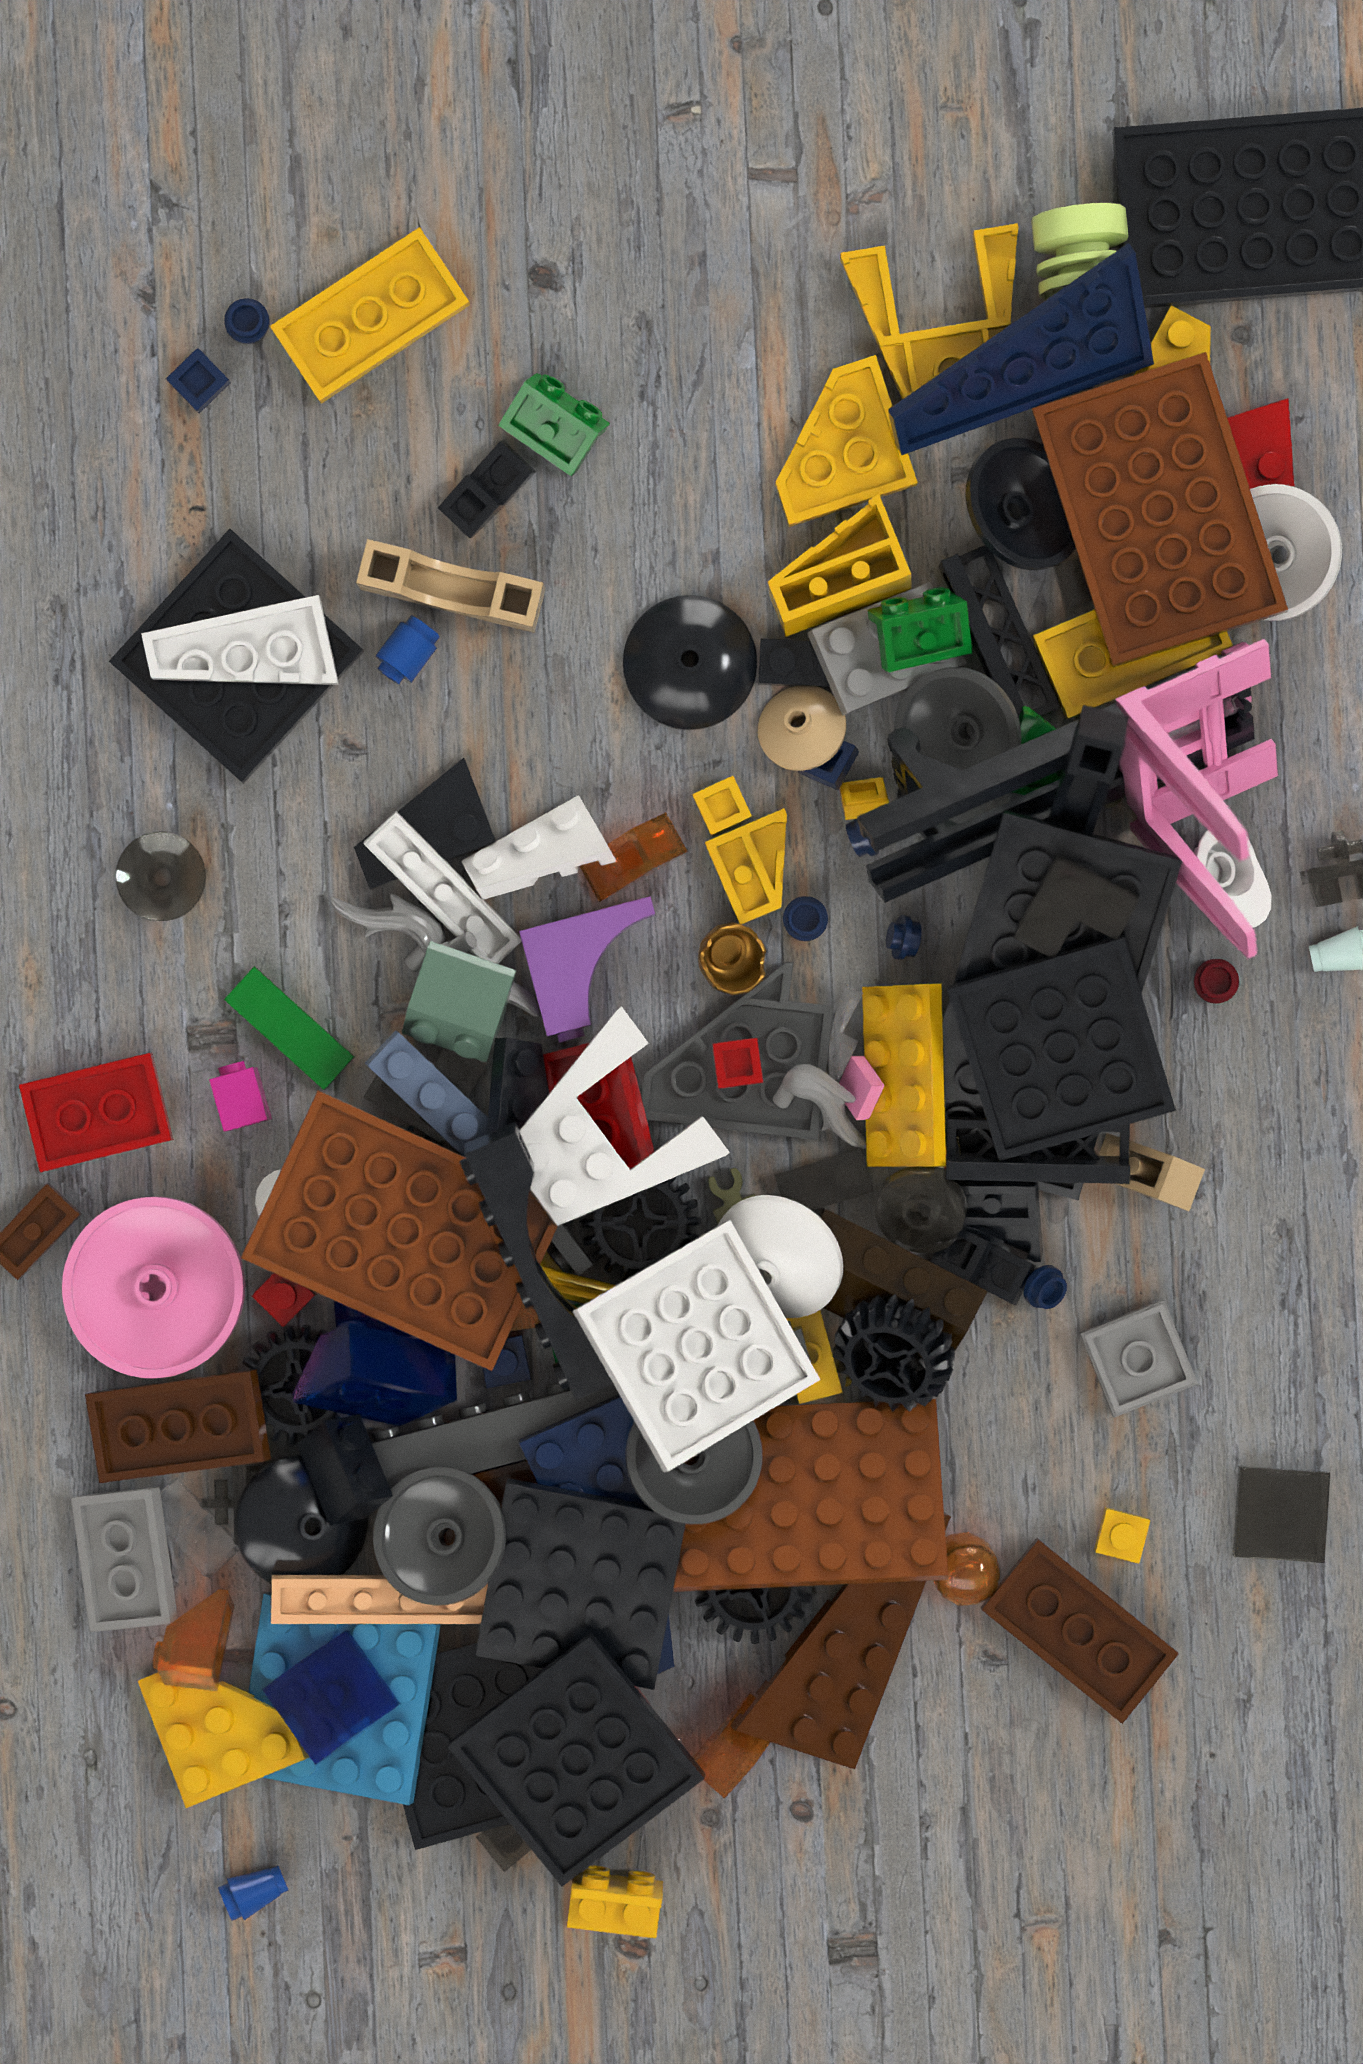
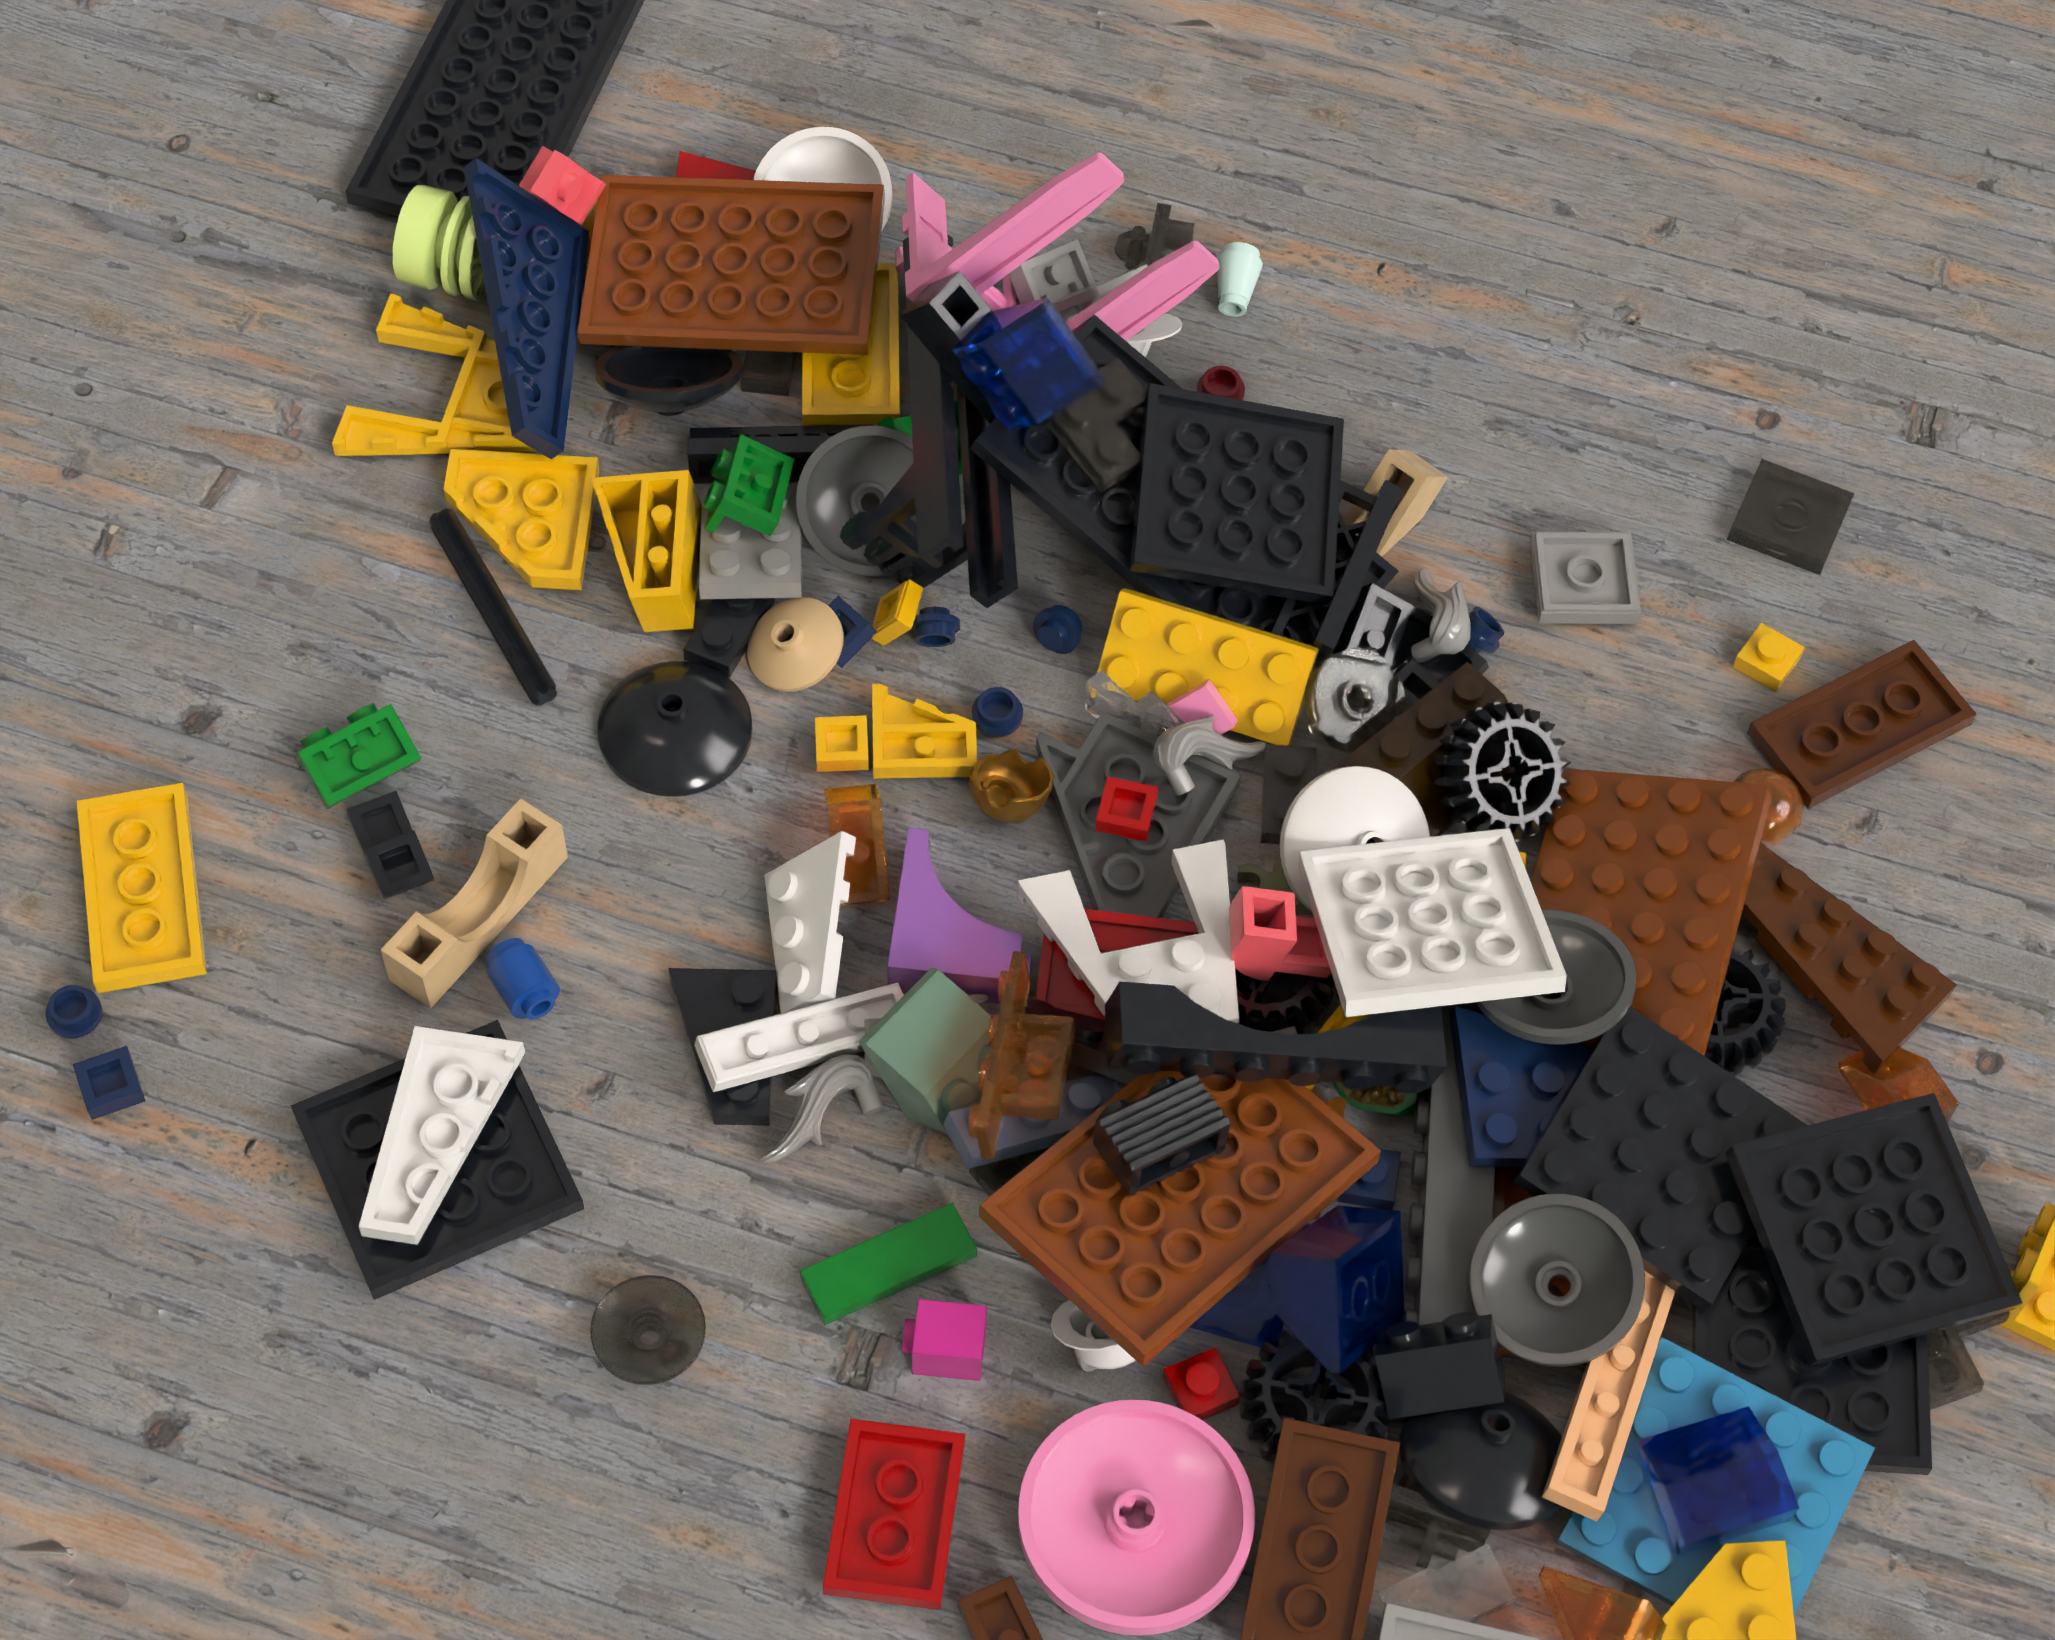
camera: 75 degrees left, 30 degrees down
(425, 1203) = (1160, 1132): none -> black brick
(457, 1077) = (1025, 1062): none -> clear orange bracket
(645, 1226) = (1271, 937): none -> coral brick
(742, 461) = (493, 607): none -> black axle
(1030, 1263) = (1450, 620): none -> light grey piece
(1064, 833) = (1027, 363): none -> clear blue slope
(1174, 327) = (562, 184): none -> coral brick
(1266, 808) = (1064, 279): none -> light grey bracket

